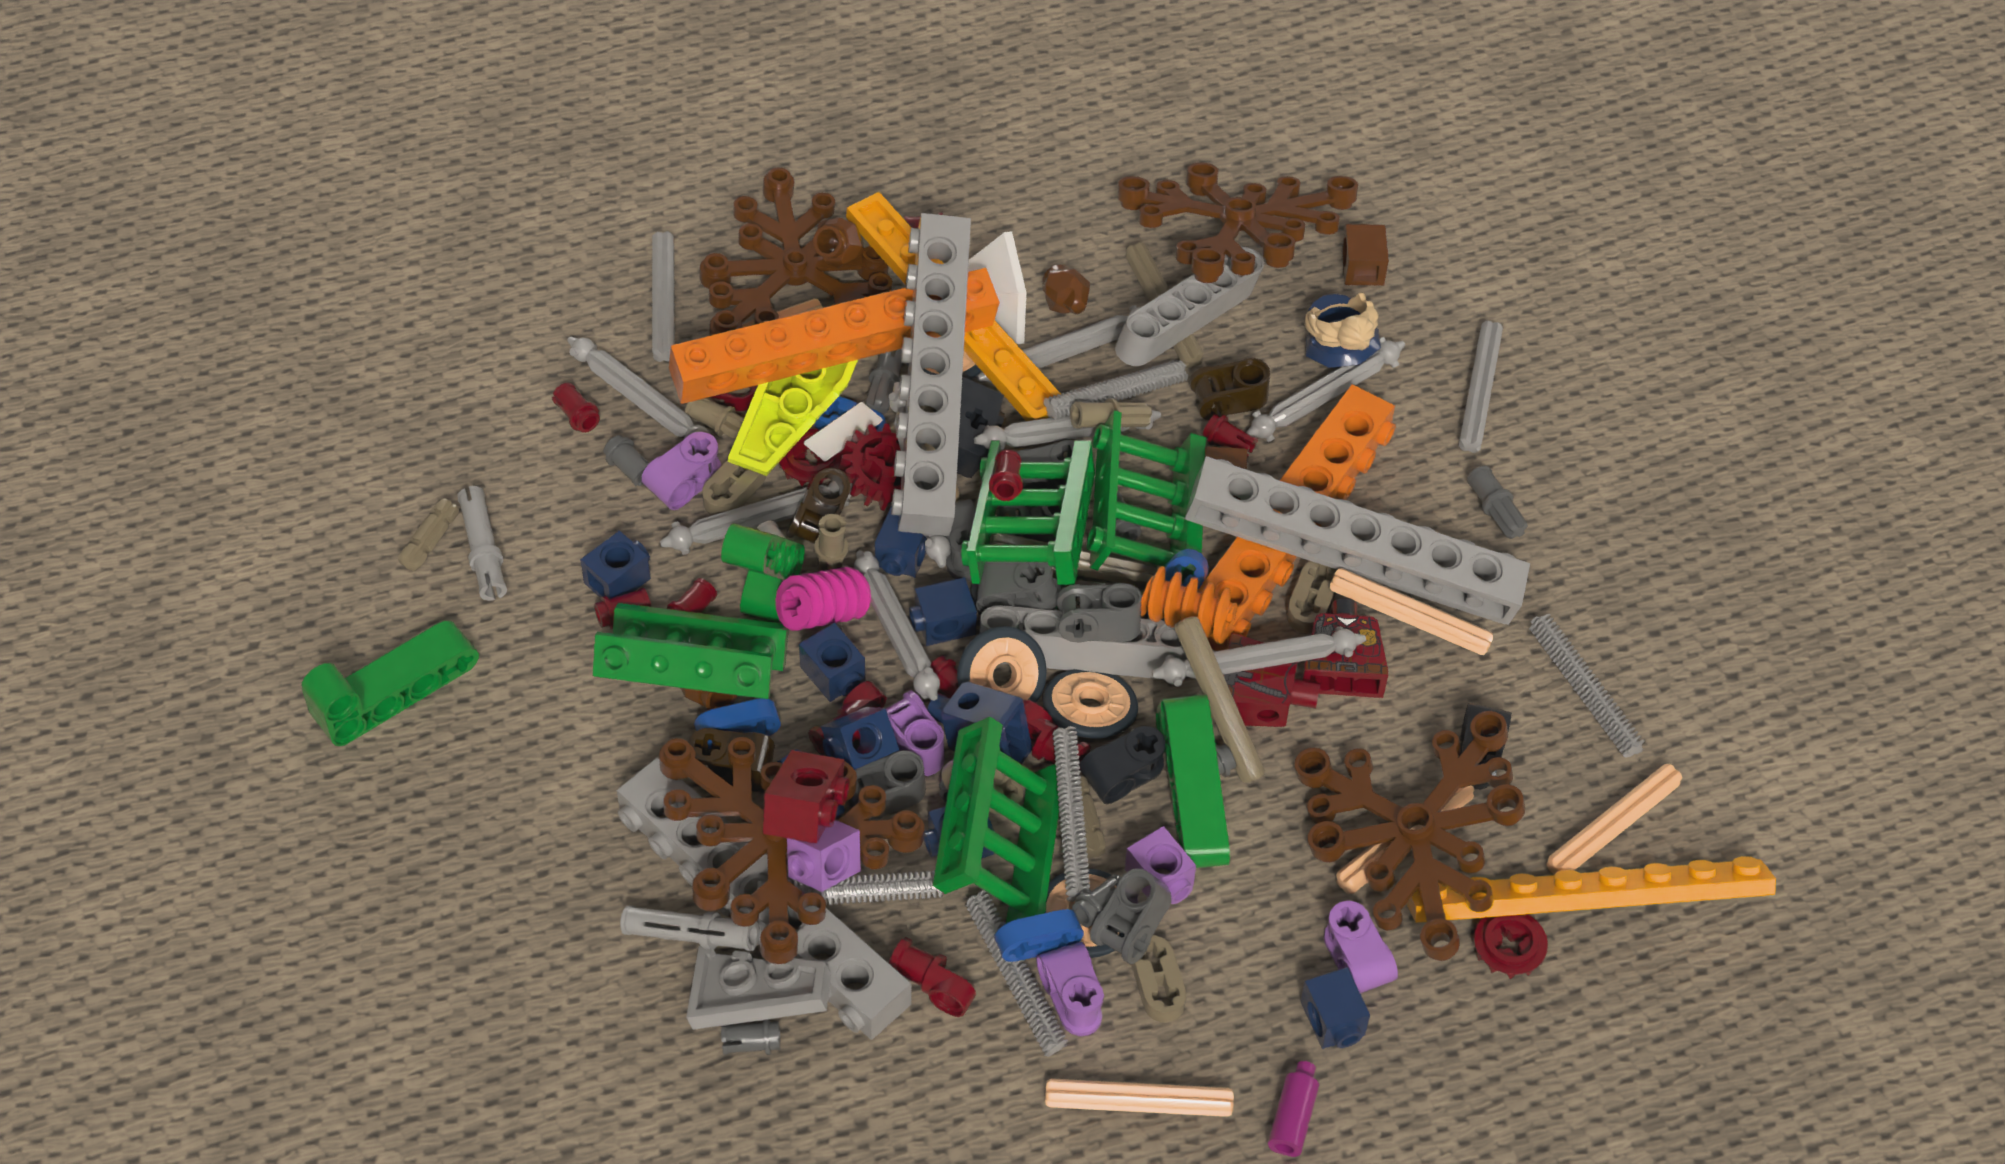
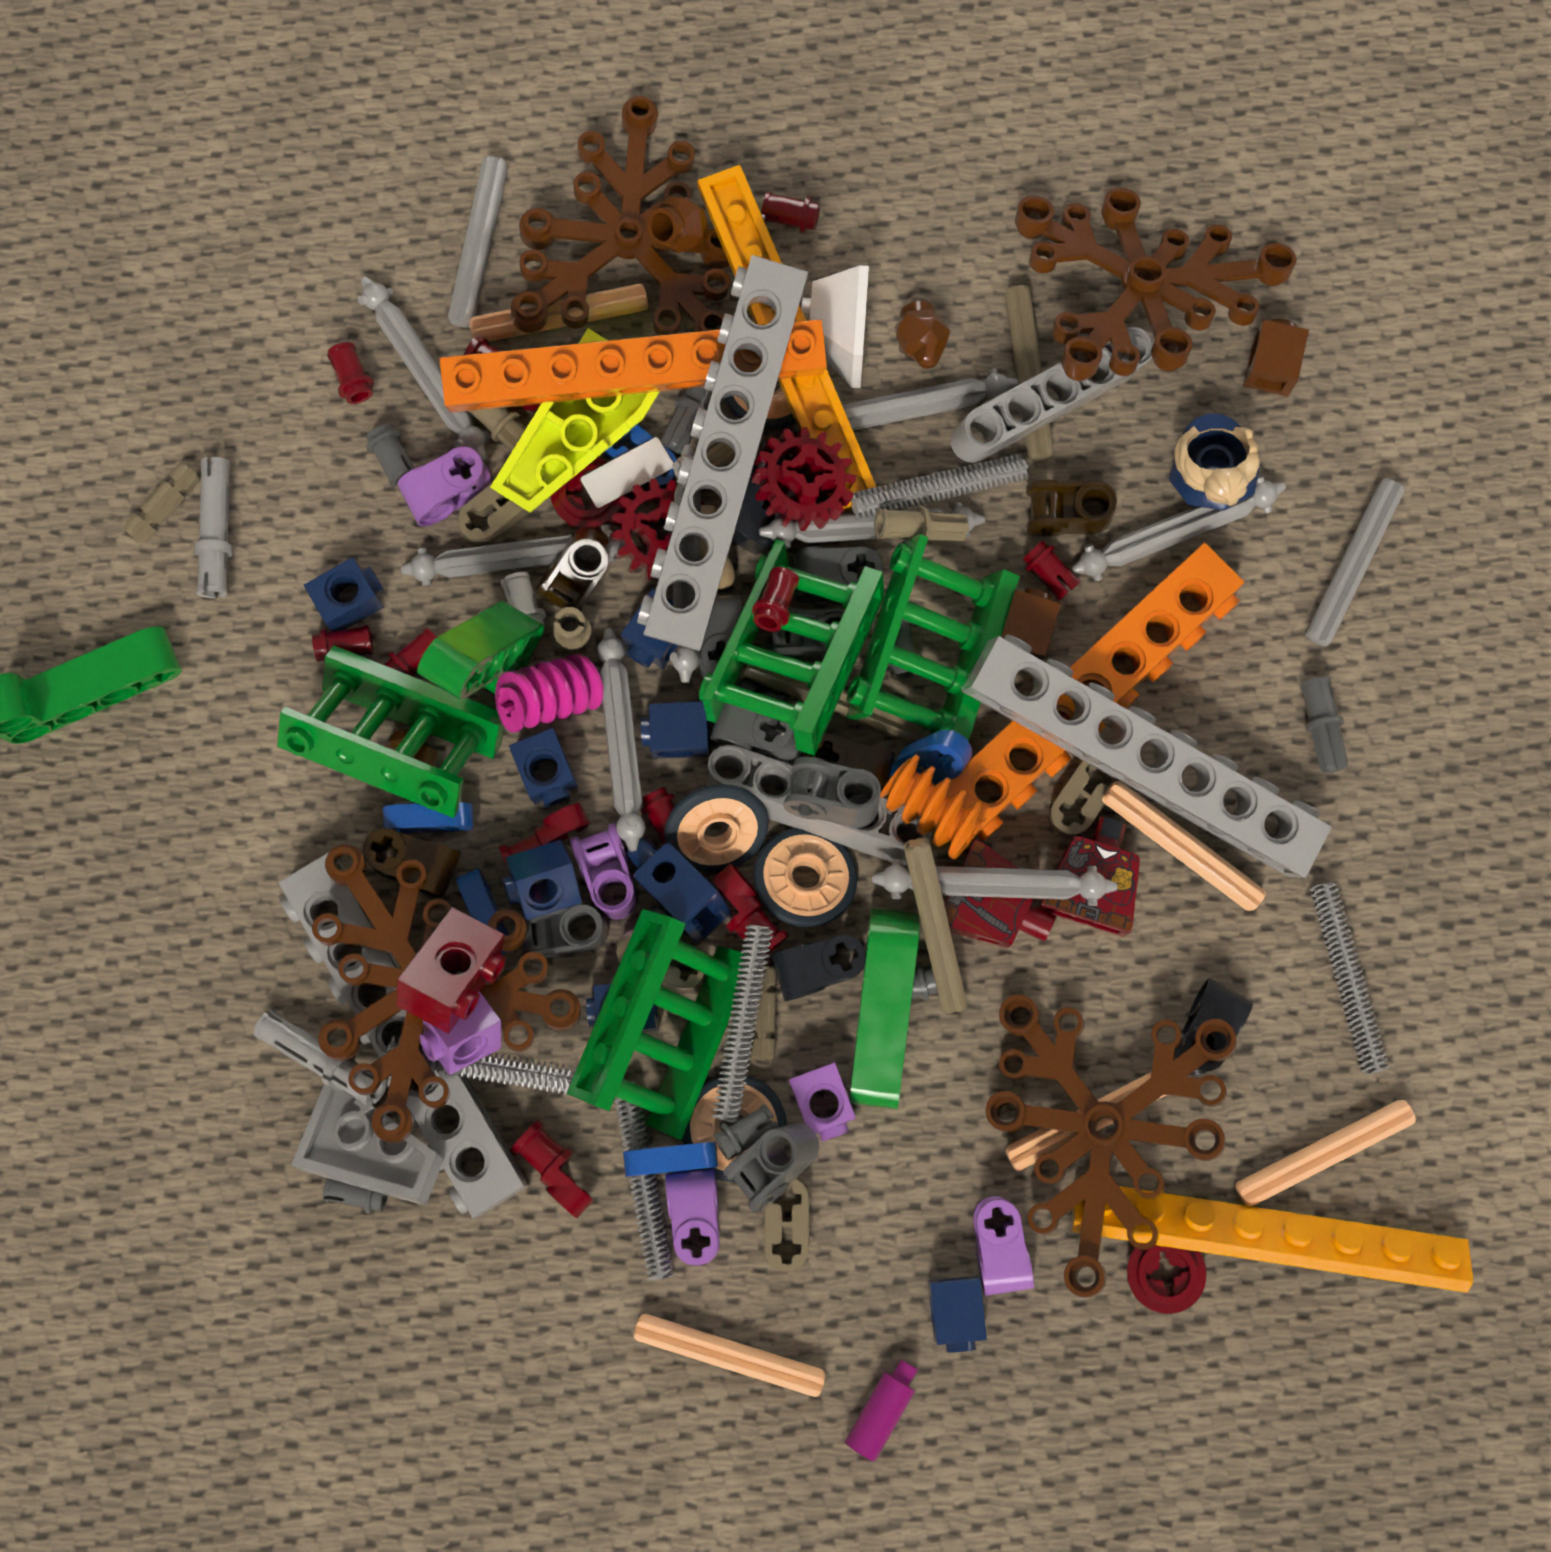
camera: 20 degrees right, 25 degrees up
(1003, 392) = (799, 482): none -> dark red gear

